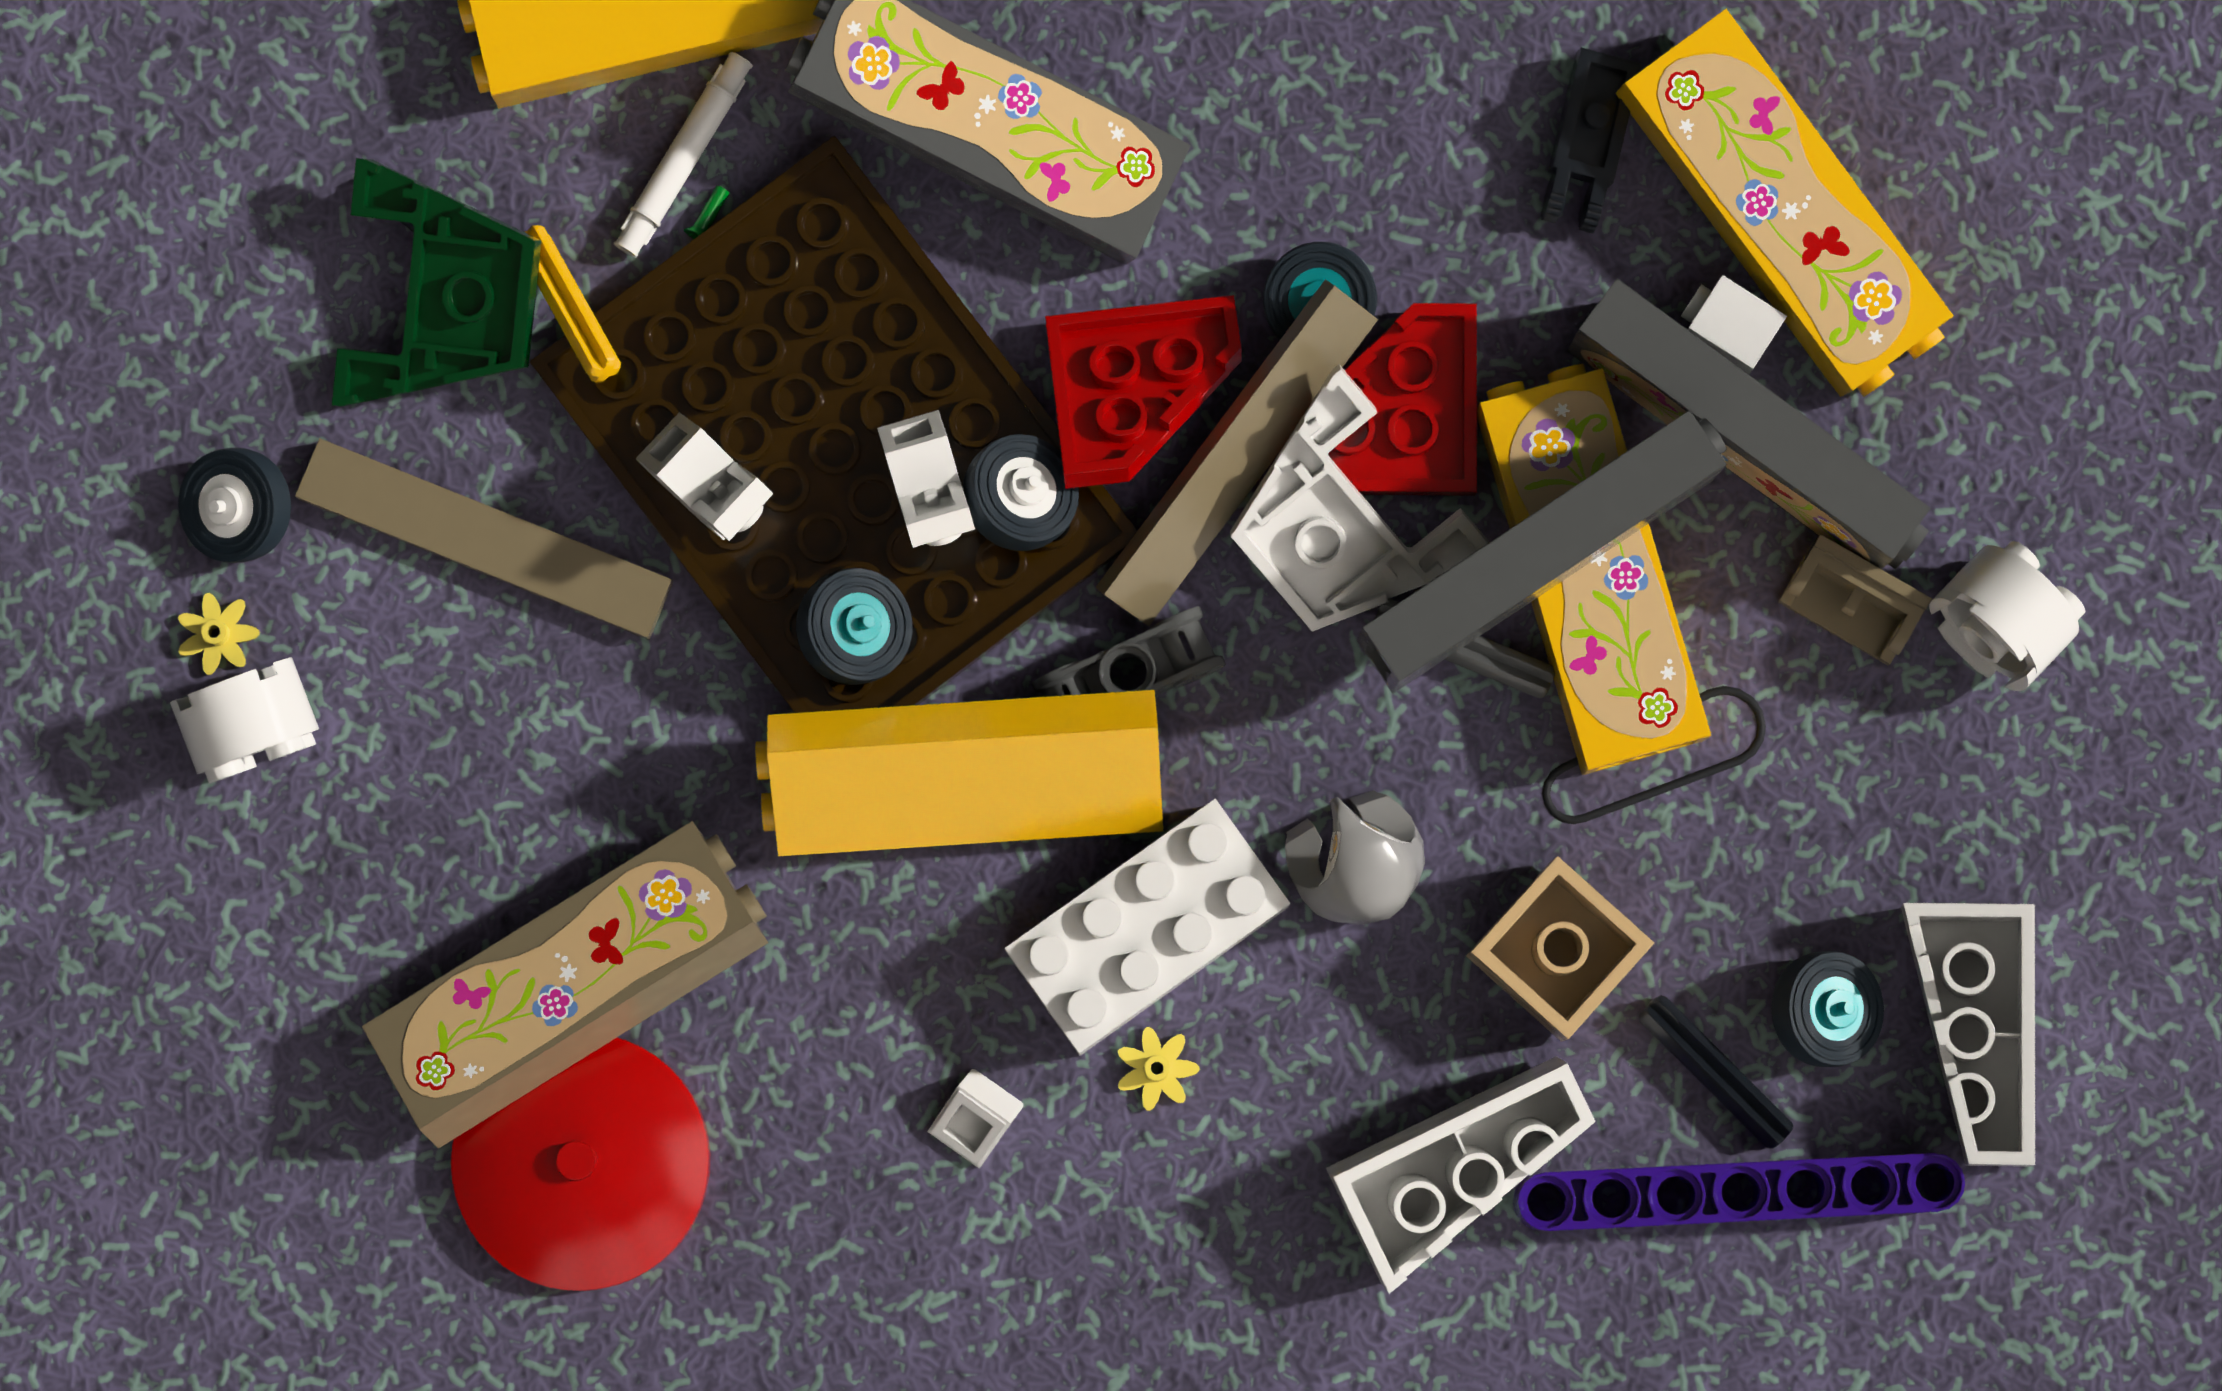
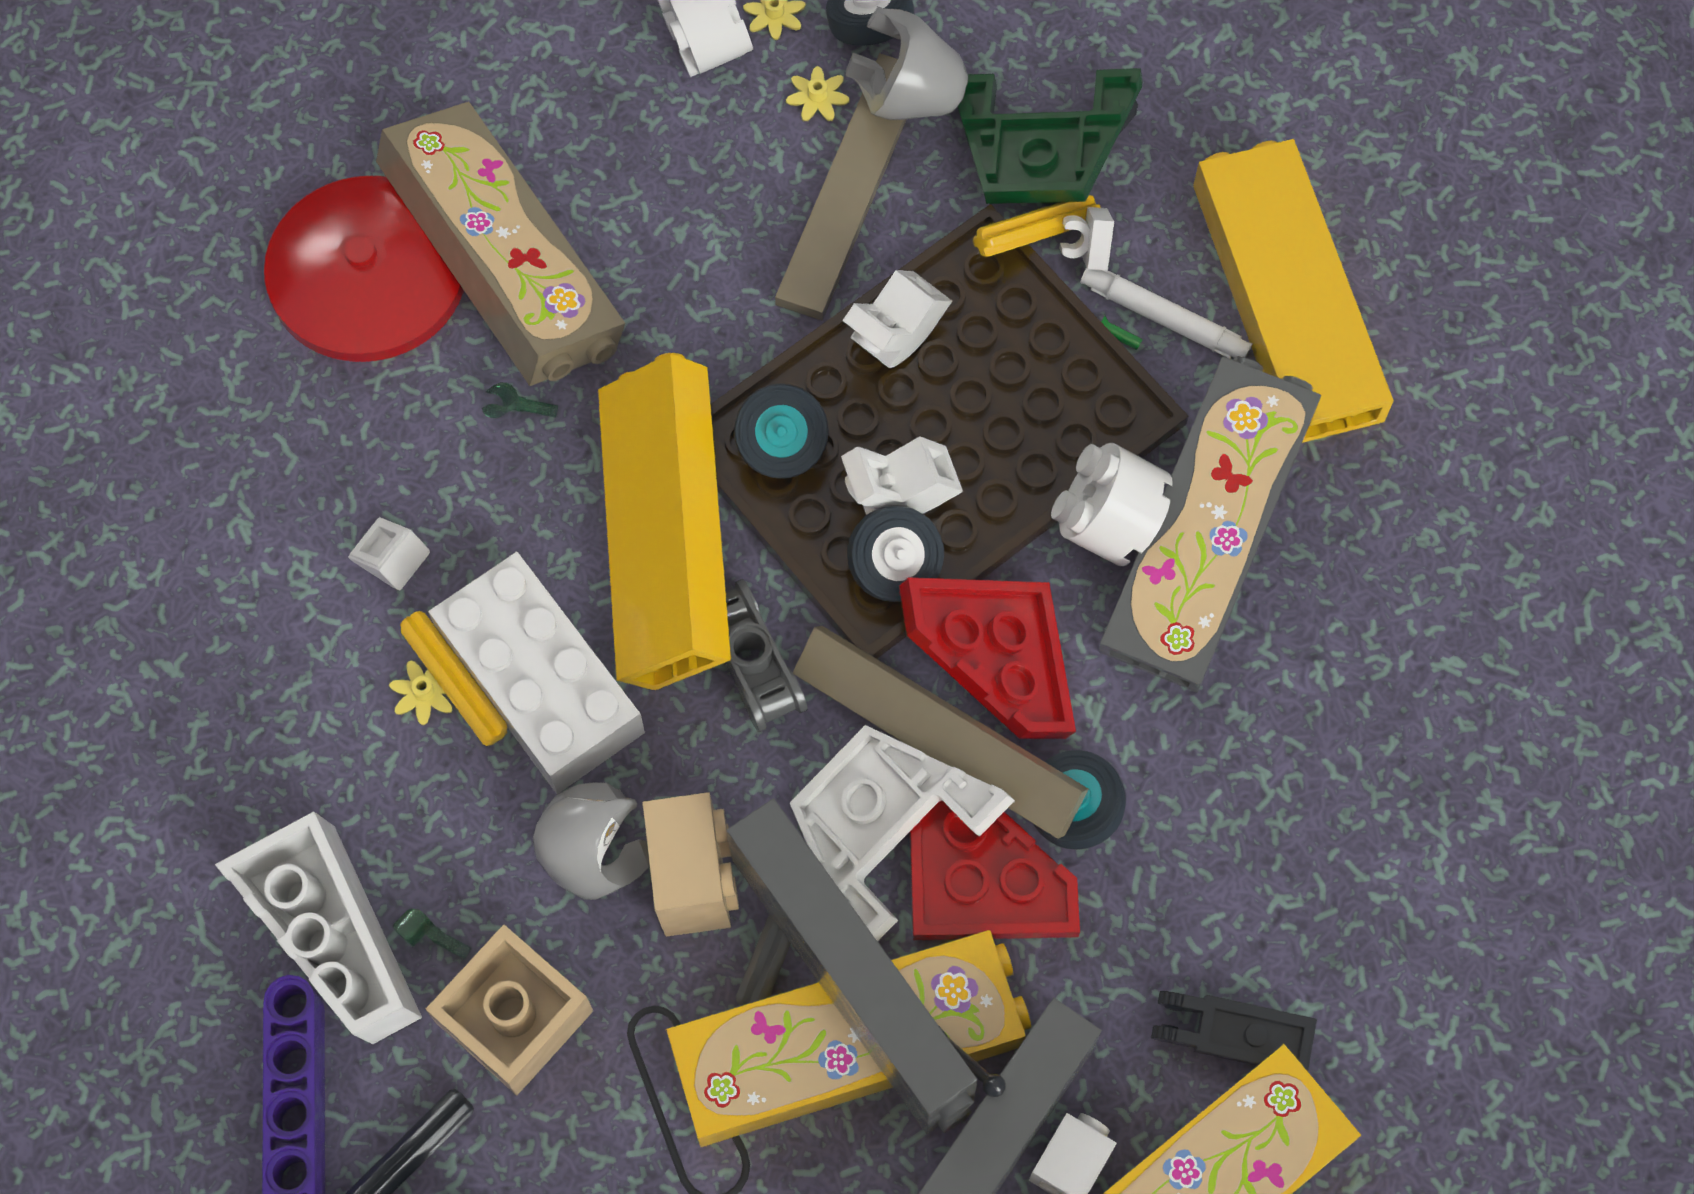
camera: 90 degrees right, 15 degrees down
(356, 423) = (925, 78): none -> light grey piece
(356, 586) = (817, 95): none -> light yellow plant
(590, 233) = (1094, 240): none -> white tile
(782, 968) = (513, 402): none -> clear green hand
(965, 229) = (1113, 503): none -> white brick
(1147, 1030) = (453, 678): none -> yellow axle
(1399, 741) = (686, 864): none -> tan brick
(1448, 1069) = (415, 925): none -> clear green hand
(1677, 399) = (993, 1084): none -> black hinge

